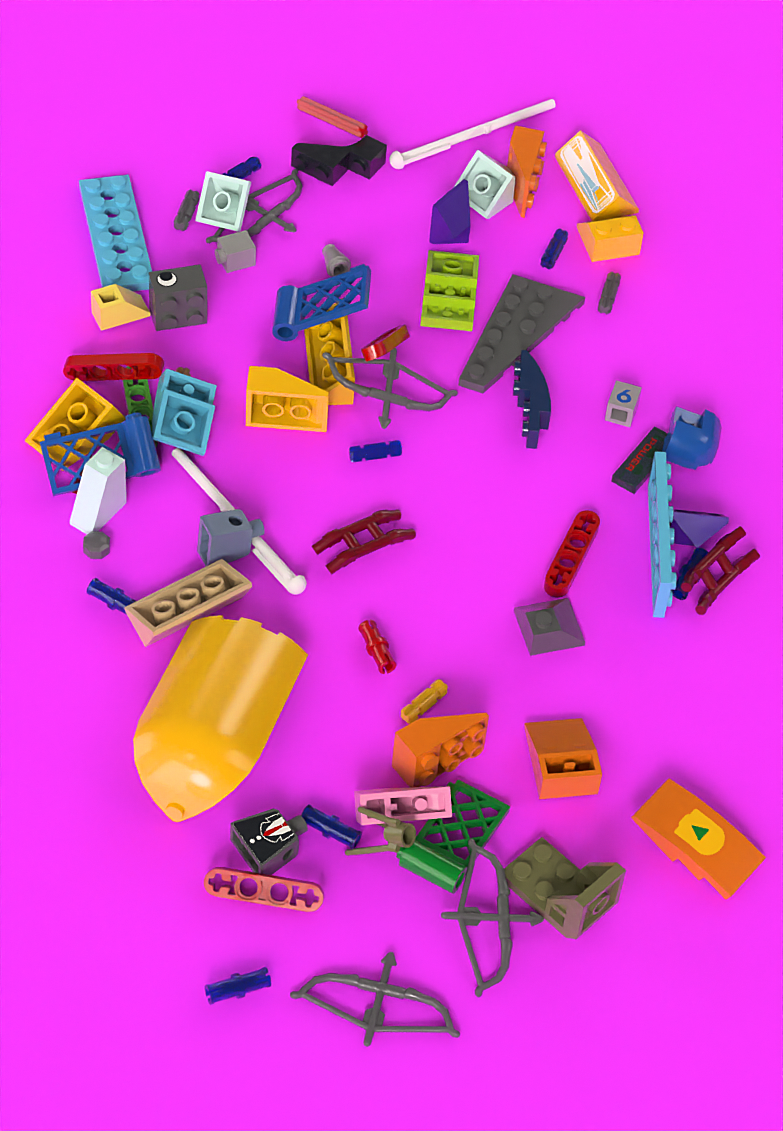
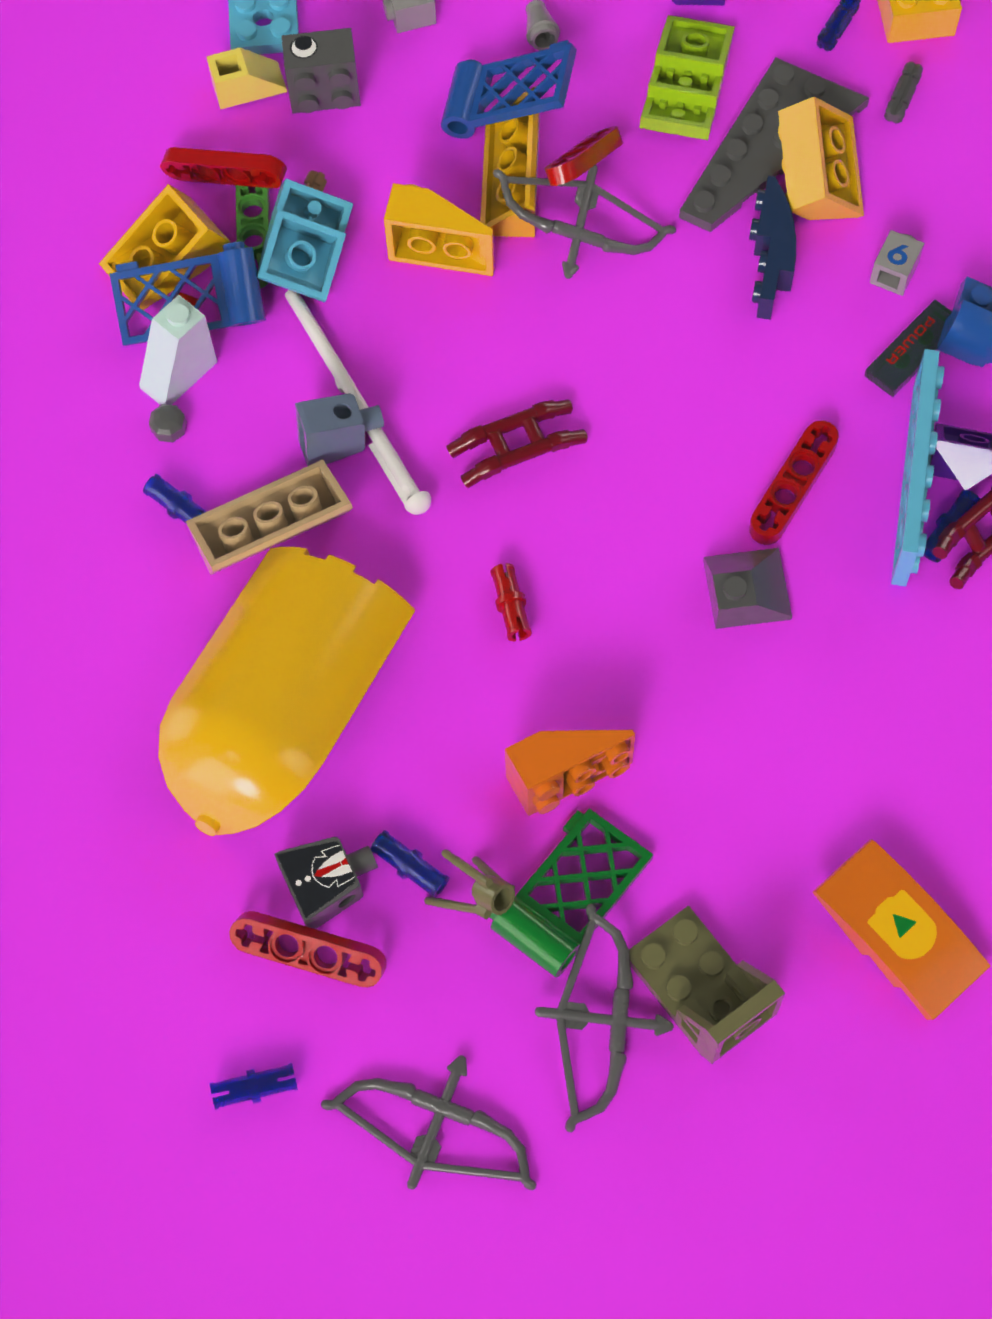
camera: 15 degrees right, 15 degrees up
(375, 451) = (552, 310): clear blue axle -> none
(404, 803) = (506, 845): bright pink slope -> none
(424, 701) = (561, 687): yellow axle -> none
(557, 338) = (820, 161): none -> slope
(563, 758) = (734, 789): orange slope -> none

